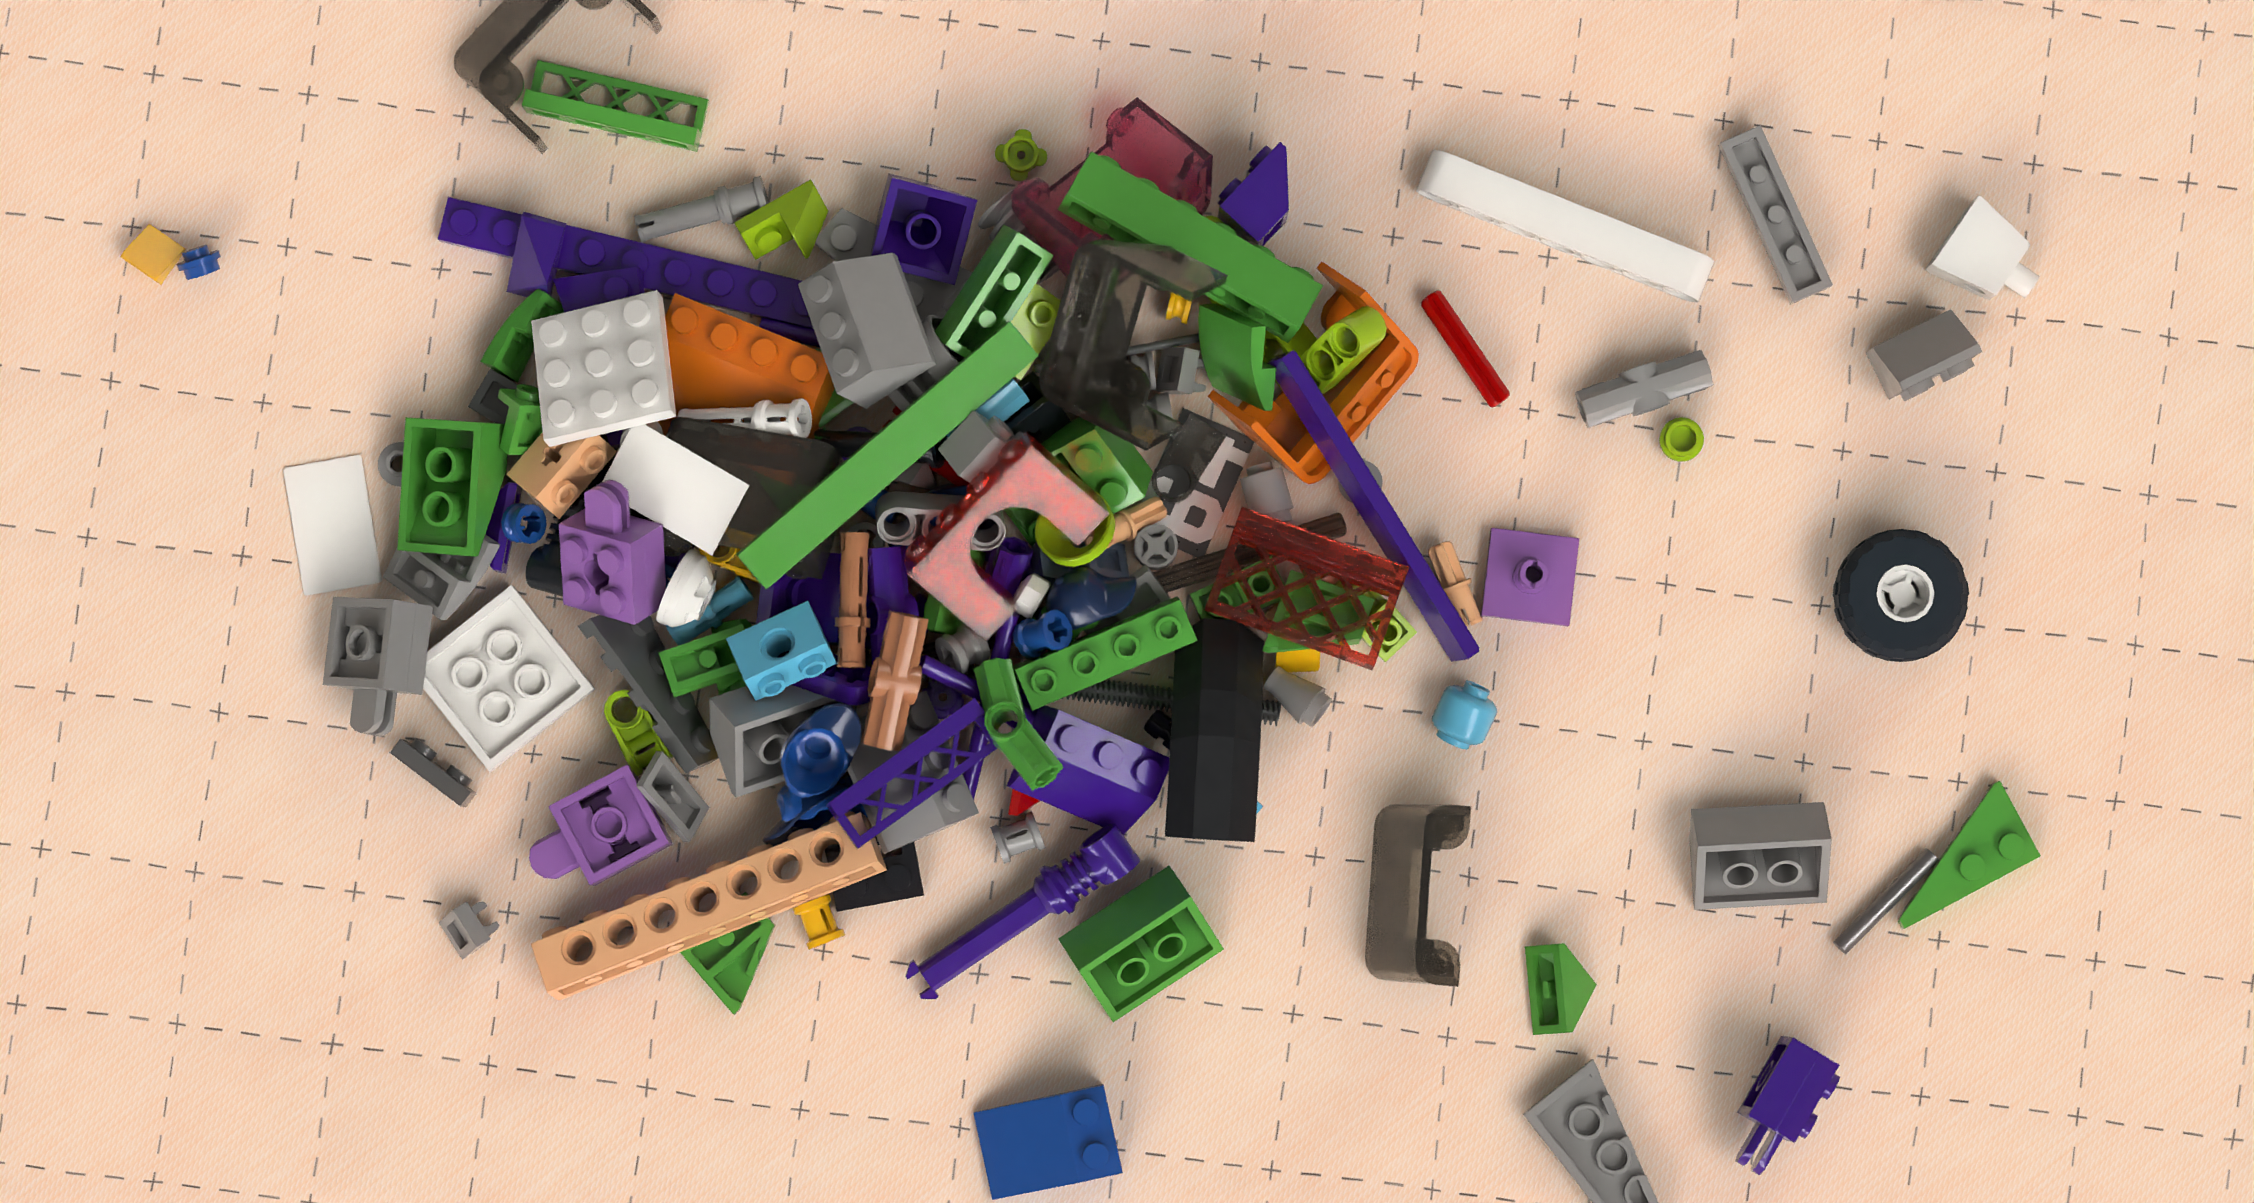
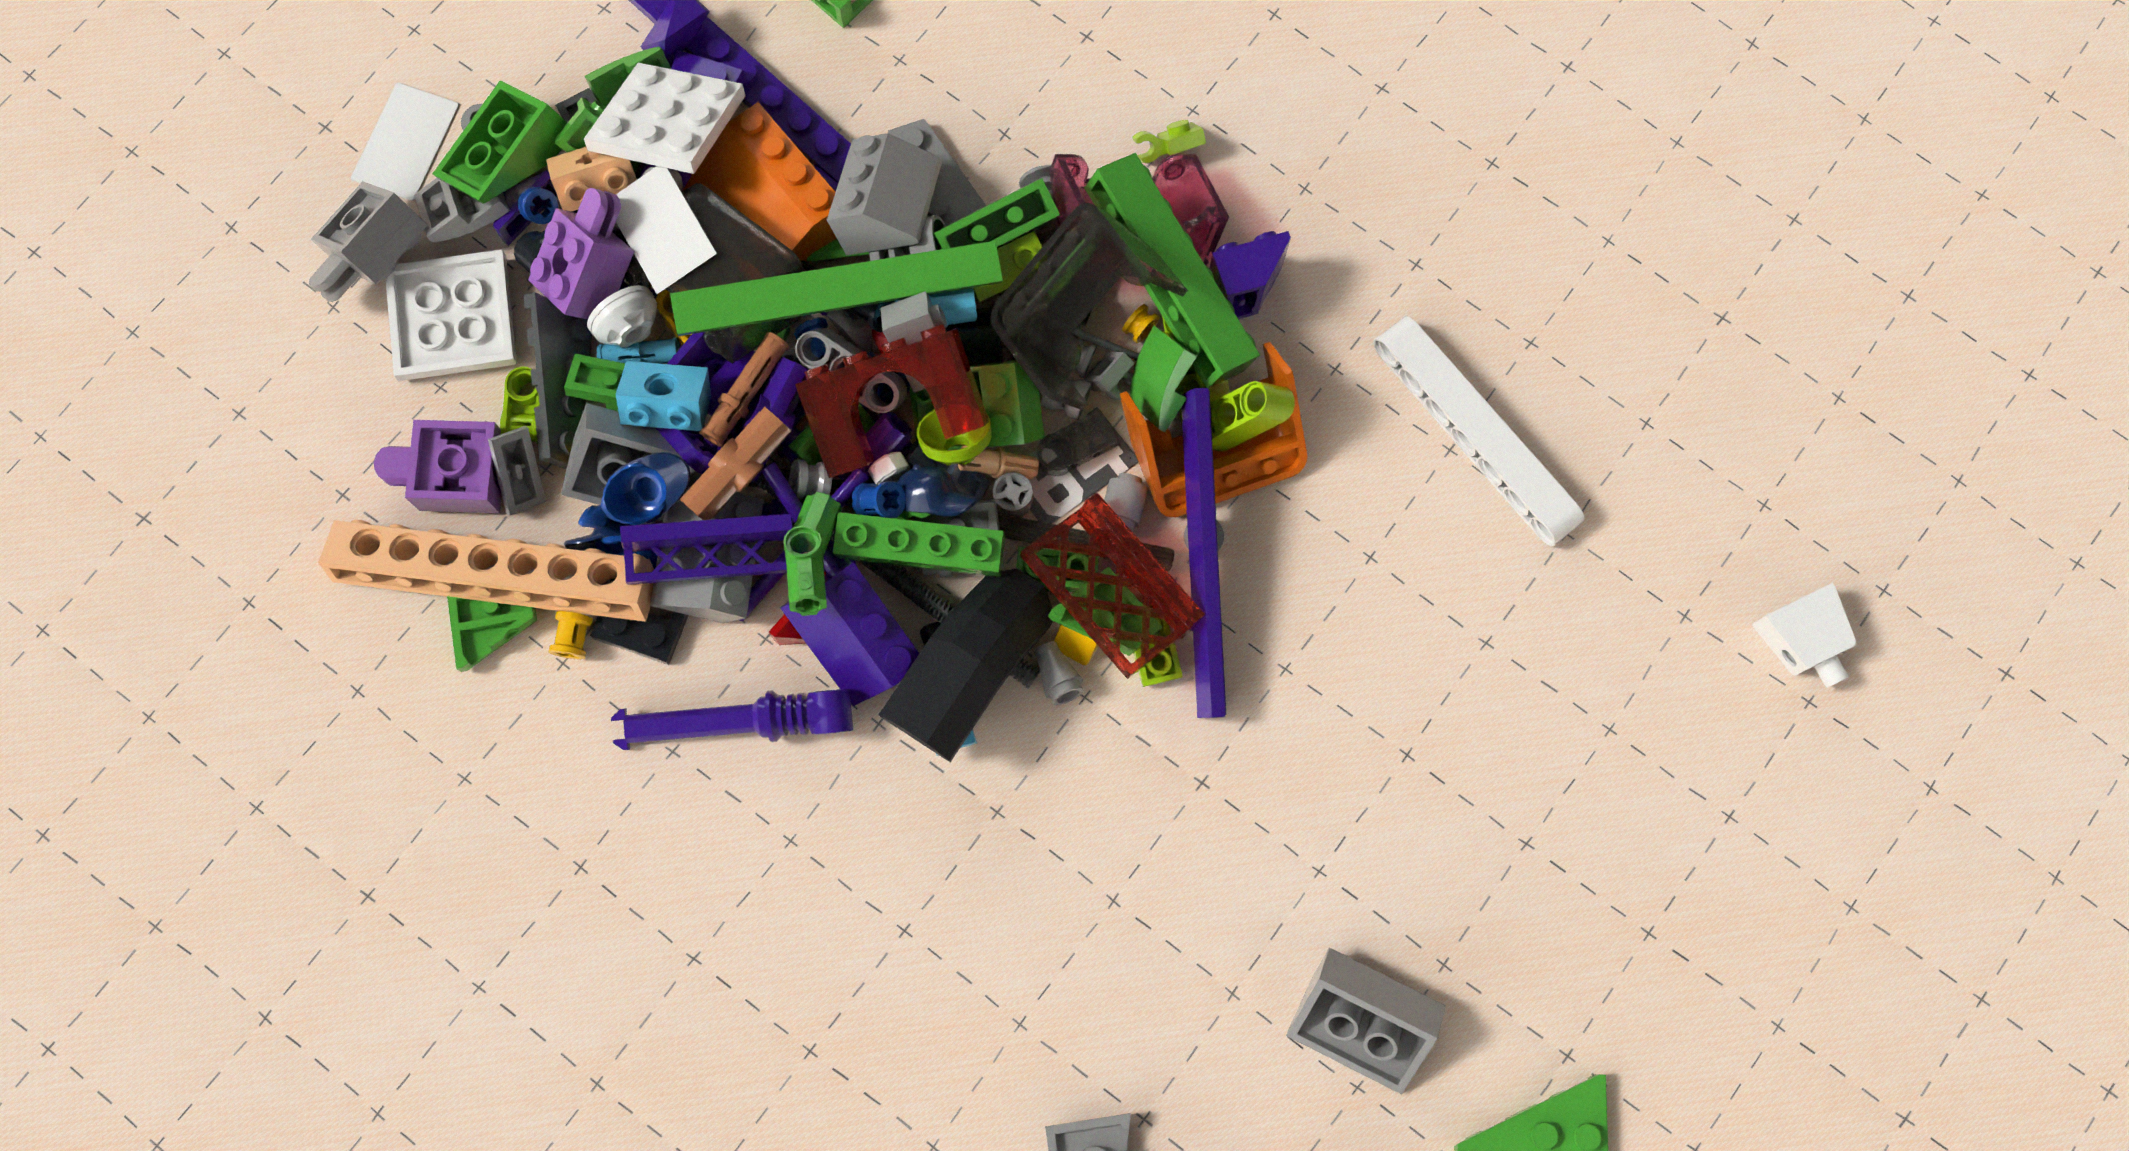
camera: 30 degrees right, 10 degrees down
(420, 759) = (358, 367): dark grey plate -> none
(466, 930) = (297, 485): light grey tile -> none
(723, 205) = (835, 69): light grey pin -> none
(763, 416) = (770, 220): white pin -> none
(793, 215) = (875, 102): lime slope -> none
(923, 227) = (975, 158): dark purple slope -> none
(1018, 837) = (767, 658): light grey bush -> none
(1022, 142) = (1087, 145): lime plate -> none
(1048, 1142) = (643, 919): blue slope -> none
(1104, 91) = (1178, 138): none -> lime plate
(1141, 943) = (812, 799): bright green slope -> none
(1400, 893) = (1019, 918): clear smoke windscreen -> none
(1454, 581) = (1235, 654): light nougat axle -> none
(1464, 715) = (1183, 764): medium azure head -> none
(1465, 348) = (1345, 481): red axle -> none
(1529, 577) = (1298, 686): medium lavender tile -> none
(1556, 988) = (1134, 1035): bright green slope -> none
(1644, 388) = (1474, 588): light grey piece -> none
(1681, 439) = (1482, 645): lime plate -> none
(1775, 214) = (1652, 513): light grey plate -> none
(1885, 901) = (1453, 1122): flat silver bar -> none
(1900, 595) = (1601, 869): black wheel -> none
(1922, 353) = (1720, 686): light grey slope -> none

